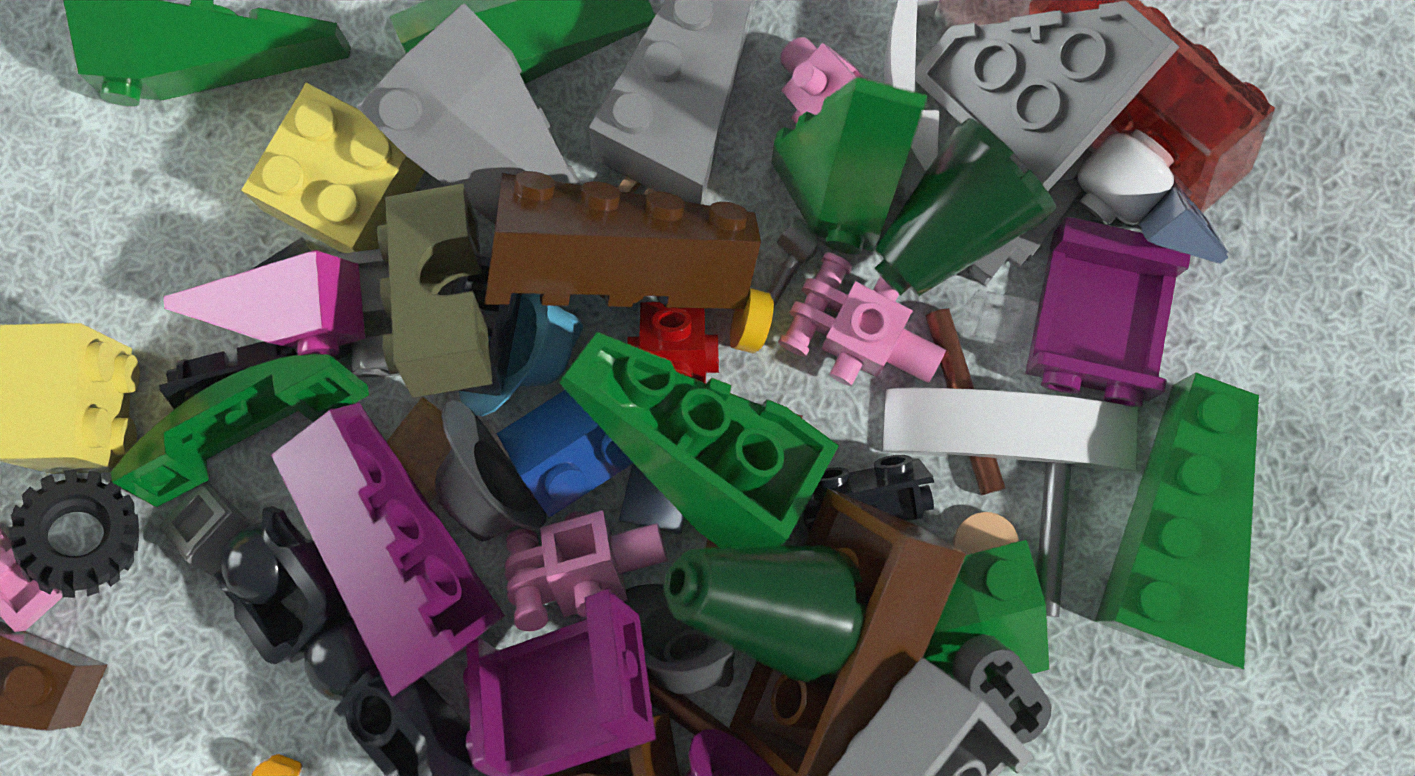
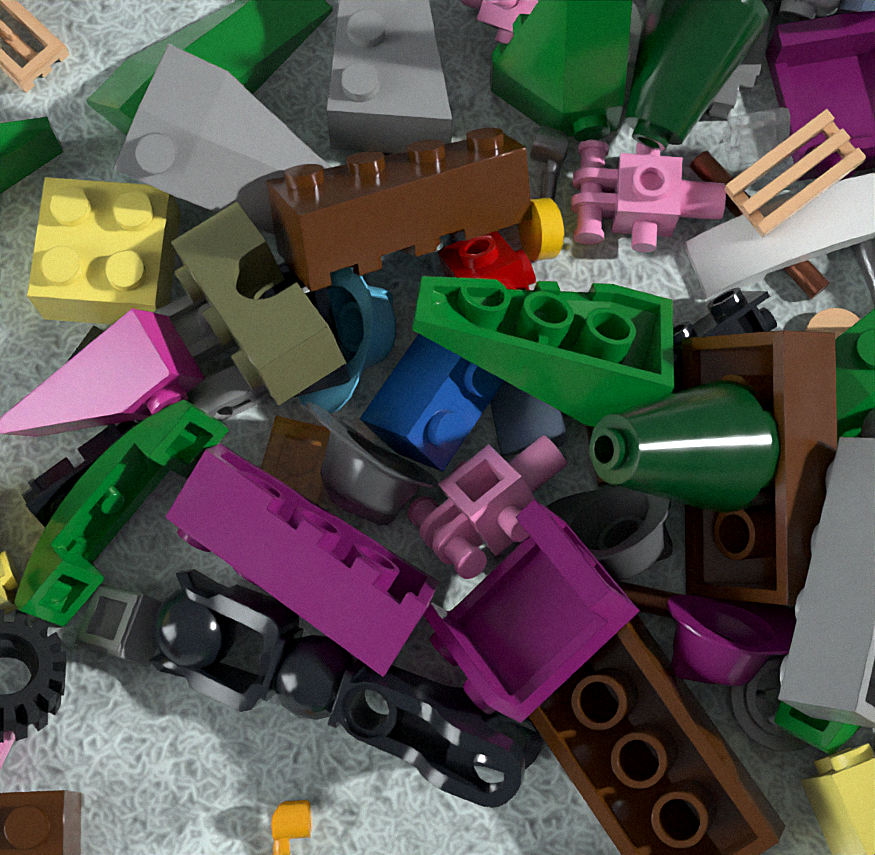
camera: 25 degrees left, 5 degrees down
(1067, 359) = (836, 140): none -> light nougat tile

